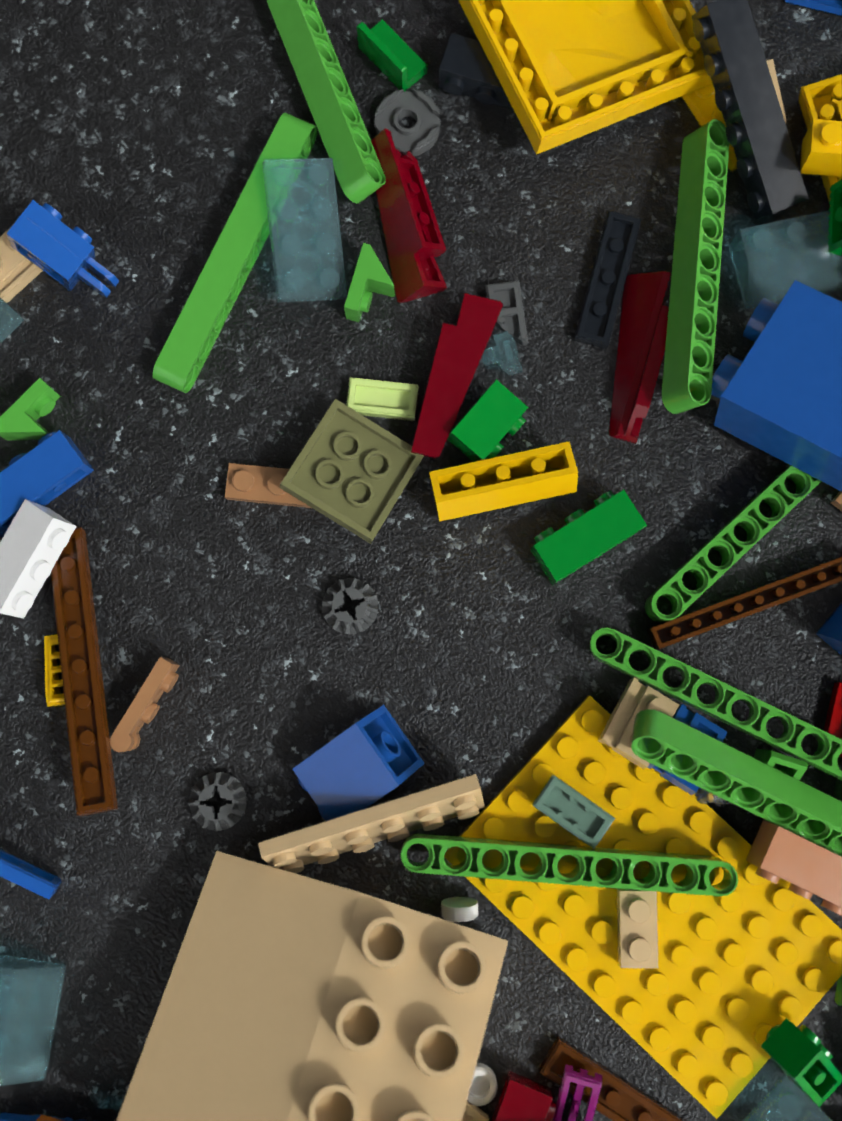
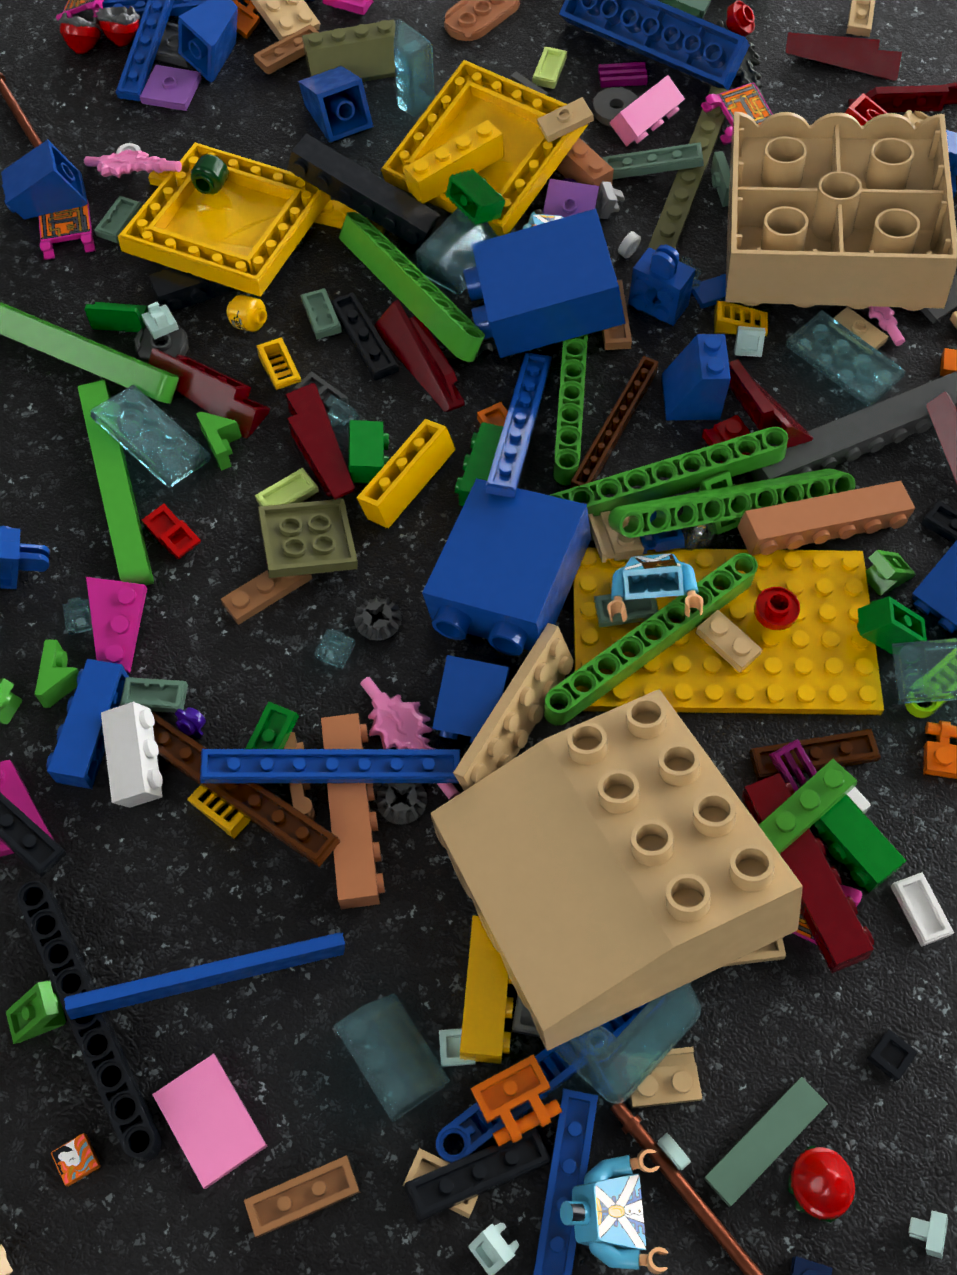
camera: 45 degrees left, 20 degrees down
(74, 1056) = (450, 1048): none -> light aqua tile
(95, 511) = (155, 693): none -> sand green plate
(99, 371) = (77, 615): none -> clear light blue tile
(102, 566) = (190, 722): none -> dark purple plate
(113, 1058) = (485, 1001): none -> yellow brick
(119, 407) = (115, 618): none -> dark pink wing
(146, 651) = (273, 728): none -> green panel
(162, 776) = (352, 821): none -> nougat brick
(170, 730) = (329, 765): none -> blue tile
(244, 350) = (170, 531): none -> red slope
(276, 733) = (400, 725): none -> bright pink piece
(286, 602) = (334, 648): none -> clear light blue tile
(421, 97) = (159, 320): none -> light aqua tile
(499, 673) = (507, 567): none -> blue brick
(501, 222) = (272, 349): none -> yellow slope
(513, 157) = (246, 313): none -> yellow head
(586, 218) = (321, 313): none -> sand green plate
(618, 816) = (653, 578): none -> medium azure torso
(648, 488) = (494, 414): none -> orange tile
(651, 530) = (518, 426): none -> blue tile
(711, 944) = (777, 608): none -> red plate

